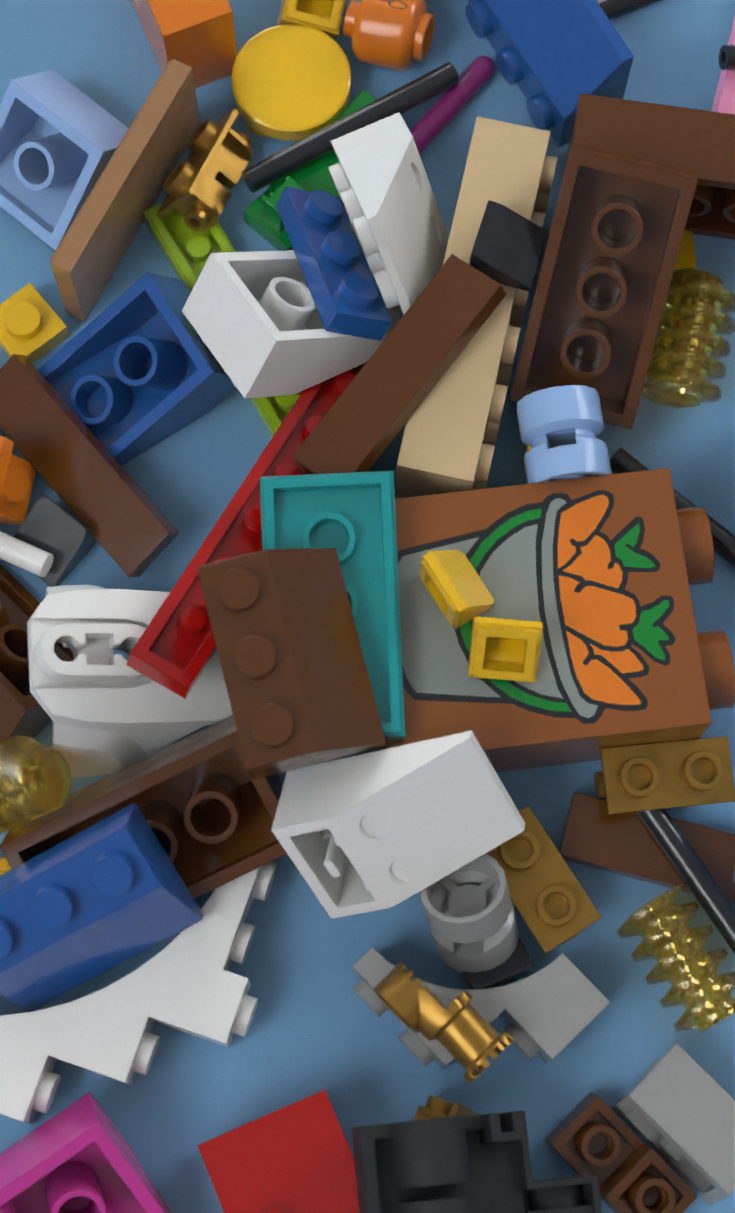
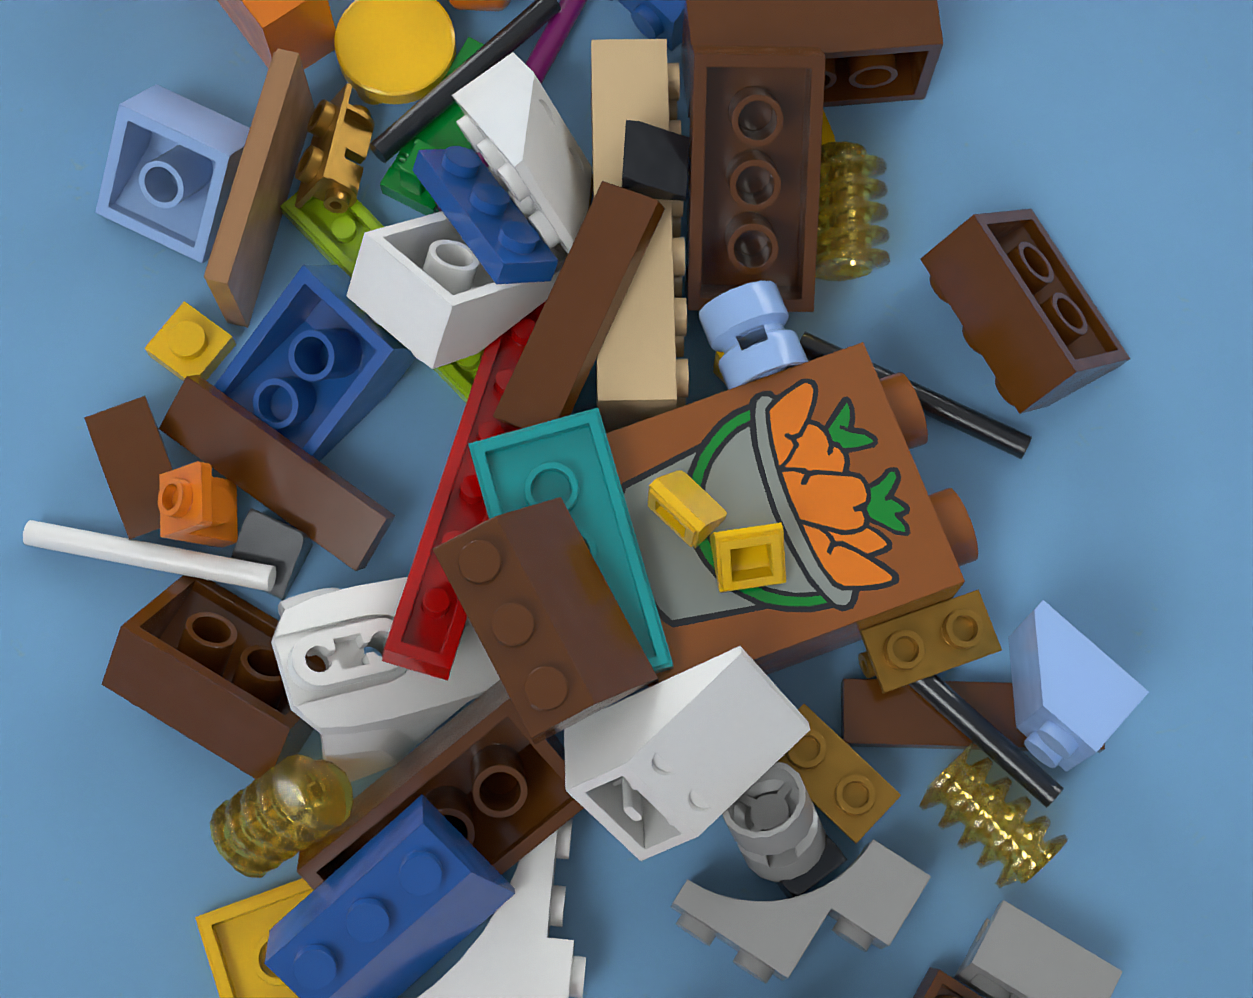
camera: 15 degrees left, 0 degrees up
(456, 1027) = (789, 938): pearl gold connector -> none

